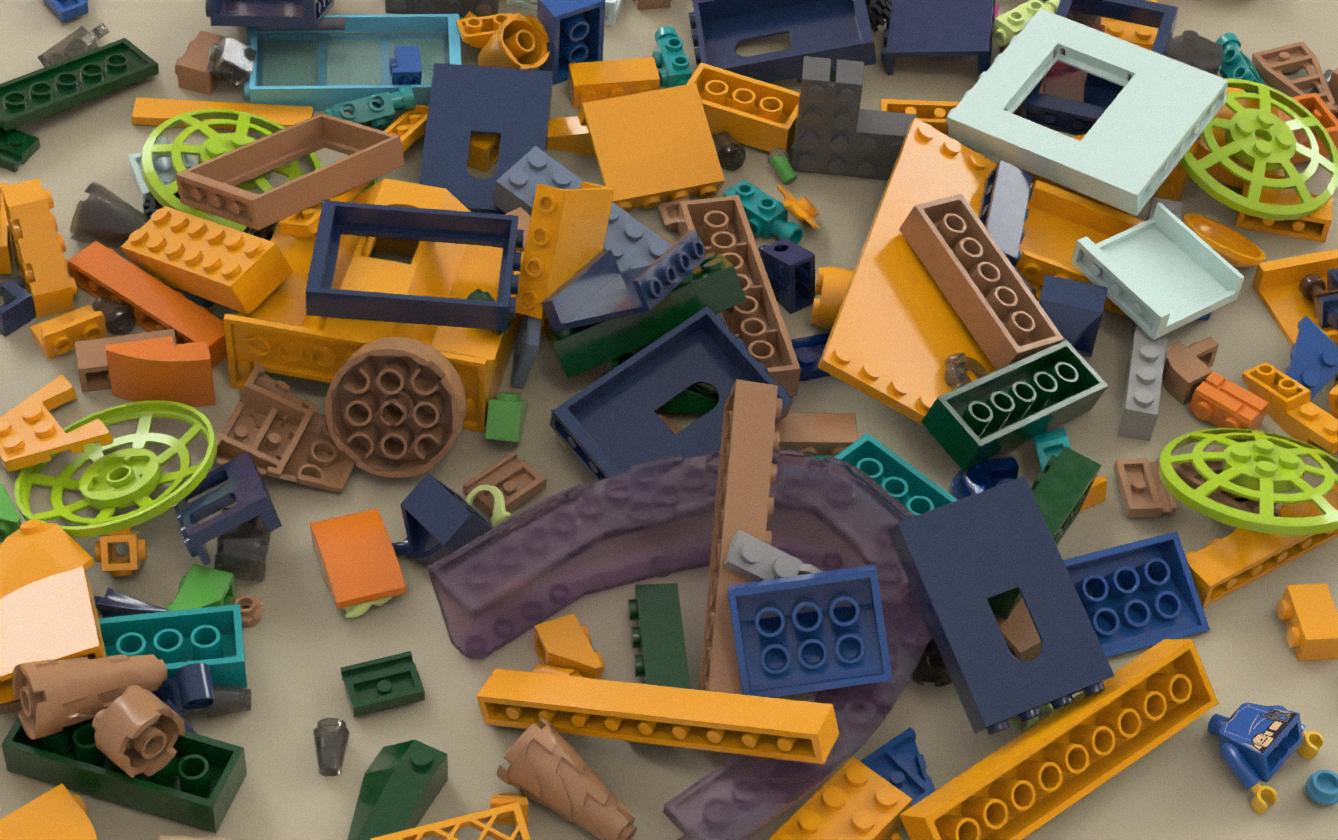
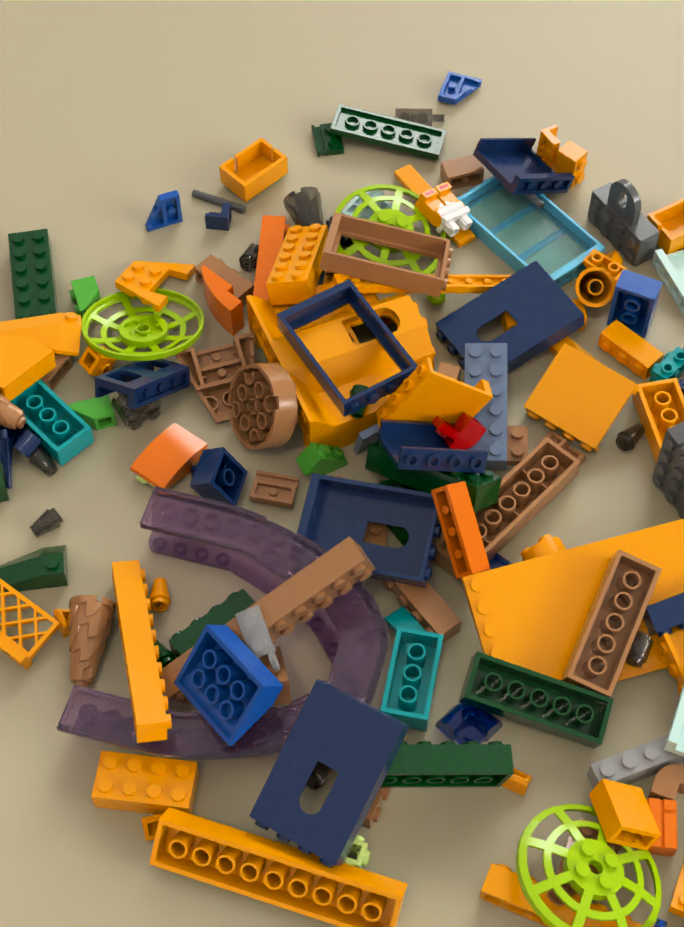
camera: 60 degrees right, 10 degrees up
(38, 247) = (256, 198): light orange brick -> none
(61, 332) = (225, 247): light orange bracket -> none
(118, 604) = (67, 385): dark blue piece -> none
(231, 61) = (462, 179): clear smoke brick -> none
(253, 614) = (106, 439): medium nougat plate -> none
(260, 100) = (444, 209): none -> hips
(366, 114) = (492, 260): teal brick -> none
(382, 684) = (101, 519): dark green plate -> none
(405, 66) = (535, 251): blue brick -> none
(499, 511) = (246, 500): yellowish green piece -> none
(568, 645) = (182, 584): light orange slope -> none
(620, 253) = (463, 434): none -> red brick
(763, 321) = (460, 529): none -> orange brick
(765, 213) = (592, 483): teal brick -> none
(779, 161) = (645, 467): bright green arm -> none
(790, 274) = (550, 514): dark blue torso -> none
(800, 209) = (610, 498): light orange plate -> none
(902, 766) = (218, 794): blue wing -> none
(957, 369) = (531, 654): clear smoke piece -> none
(1050, 444) = (527, 740): teal slope -> none
(1074, 310) = (644, 692): dark blue piece -> none
(1138, 593) = (441, 848): blue slope -> none
(1142, 488) = (548, 798): medium nougat plate -> none
(1206, 413) = (624, 814): none -> light orange brick

